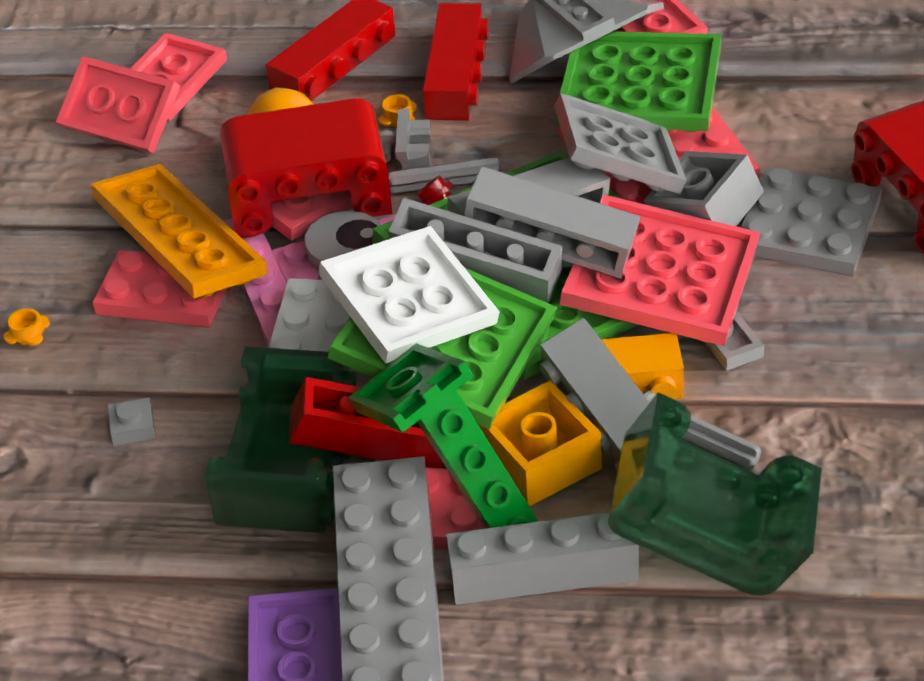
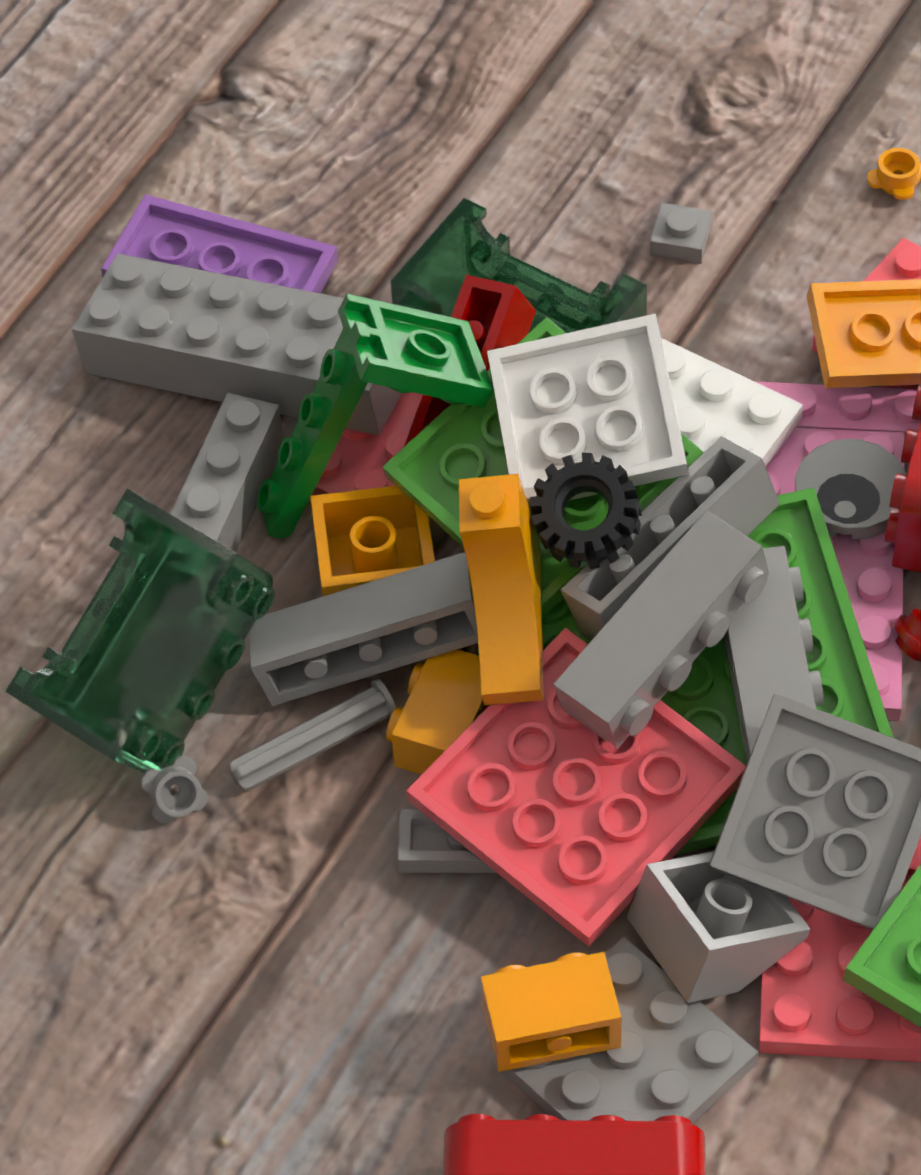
camera: 115 degrees right, 10 degrees up
(505, 275) = (579, 478): none -> black tyre
(556, 294) = (506, 586): none -> light orange arch
(823, 224) = (551, 1010): none -> light orange brick

